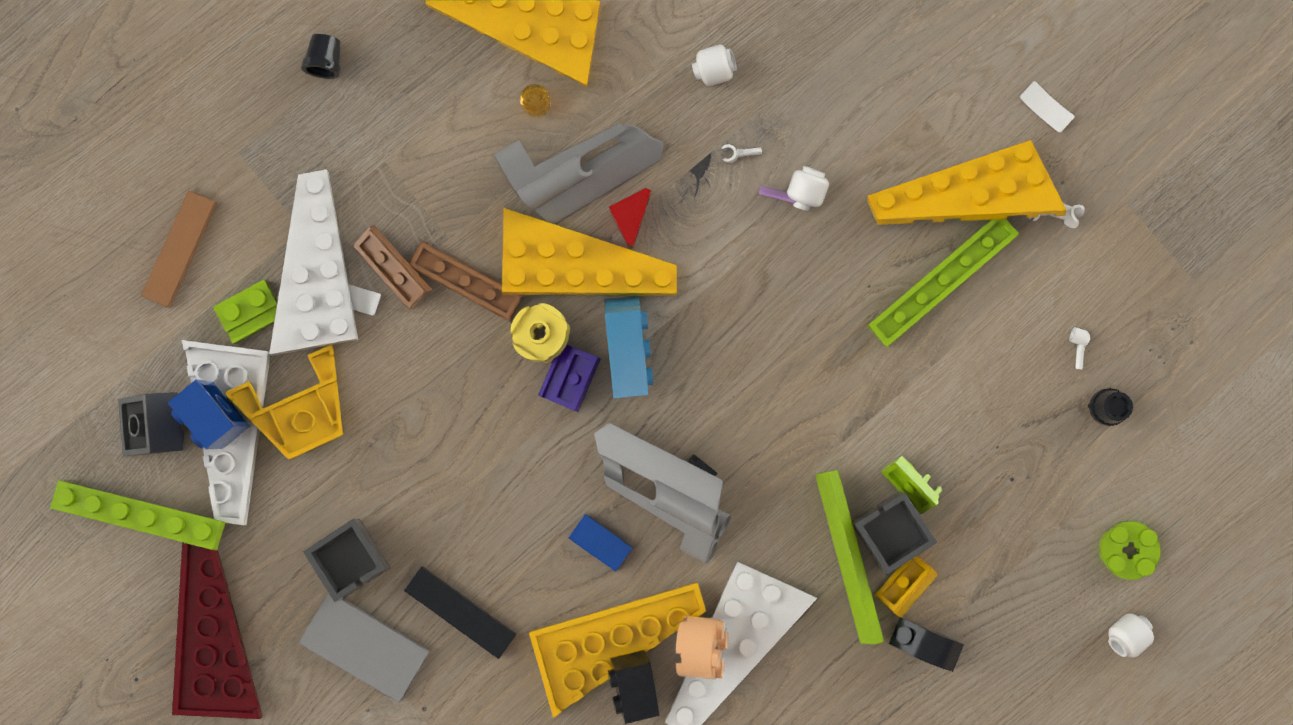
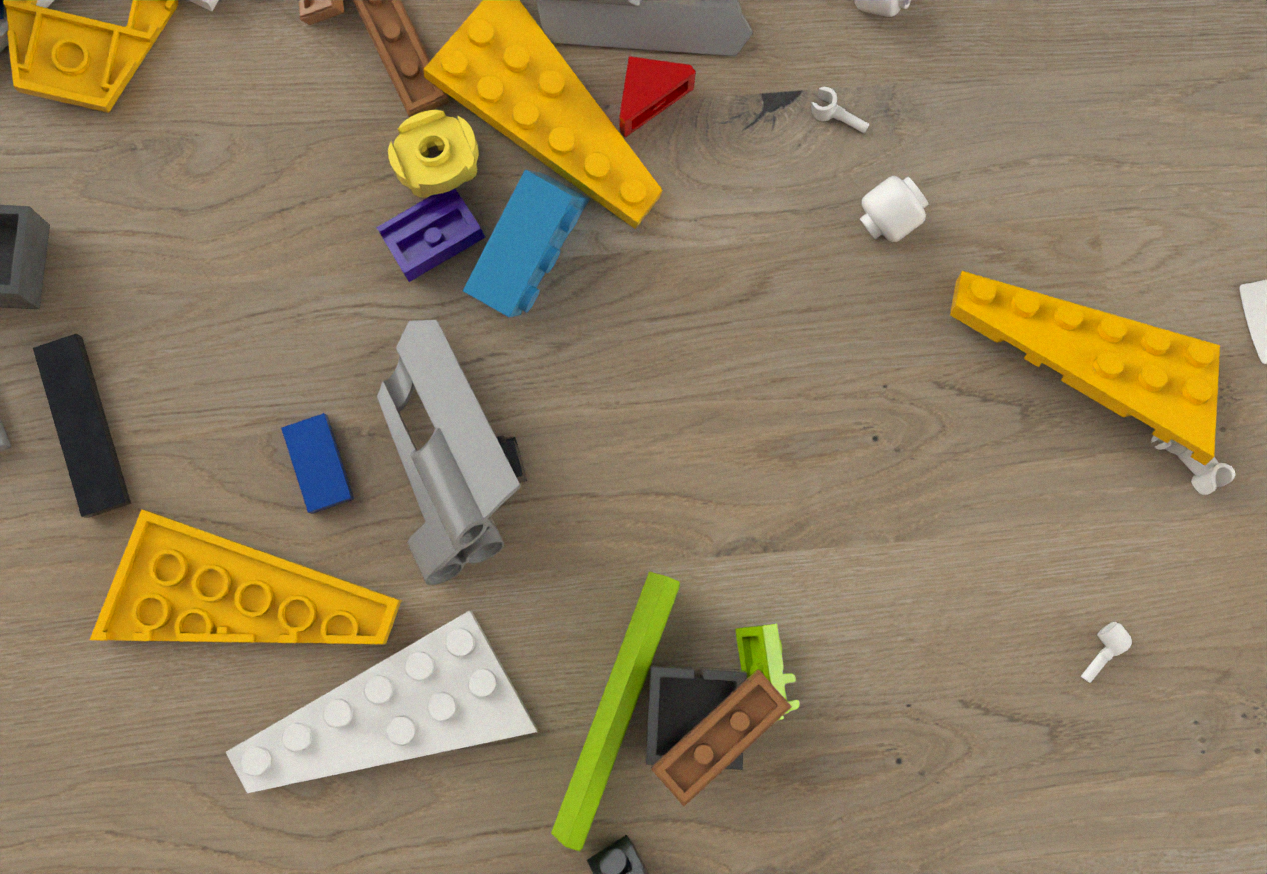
camera: 30 degrees right, 5 degrees down
(634, 687) = (216, 674): black brick -> none
(701, 647) = (333, 683): light nougat brick -> none
(775, 194) = (848, 191): lavender window -> none
(906, 585) = (650, 806): yellow slope -> none
(915, 534) = (720, 737): none -> medium nougat tile
(942, 280) = (985, 440): lime plate -> none
(1110, 407) = (1095, 758): black piece -> none

